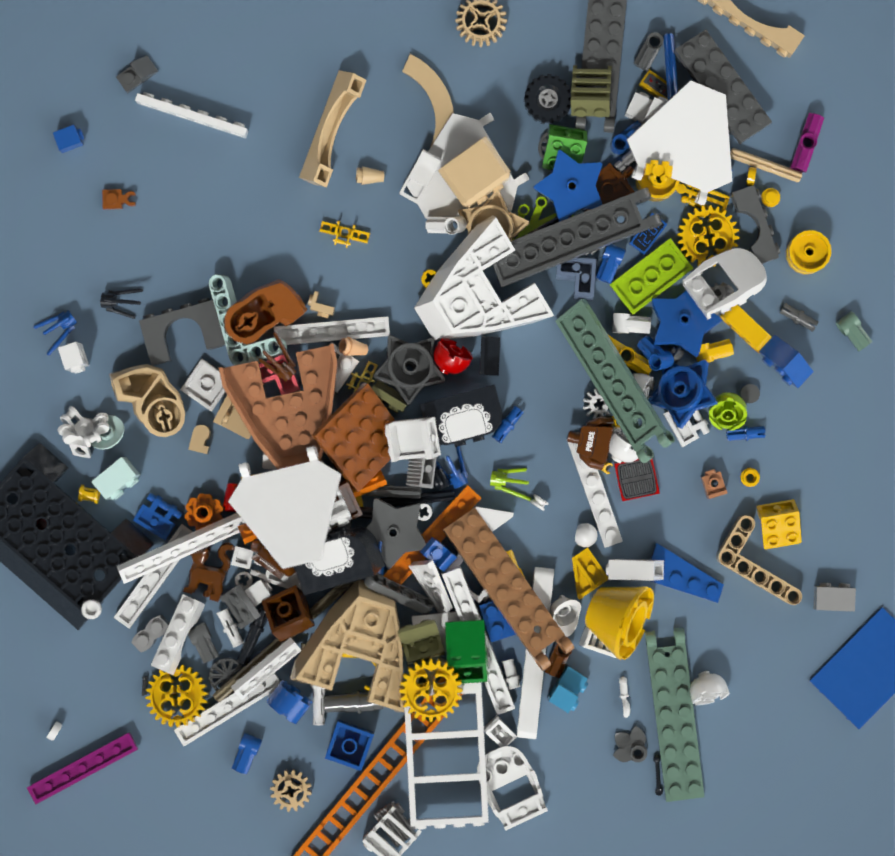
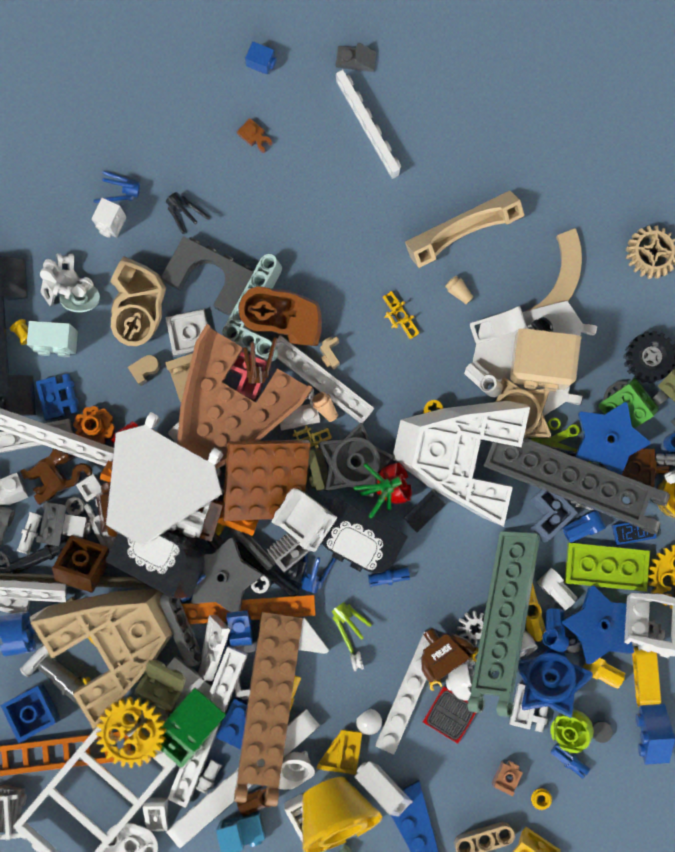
camera: 45 degrees right, 5 degrees down
(447, 364) = (385, 486): none -> green plant
(452, 148) = (542, 324): none -> black plate

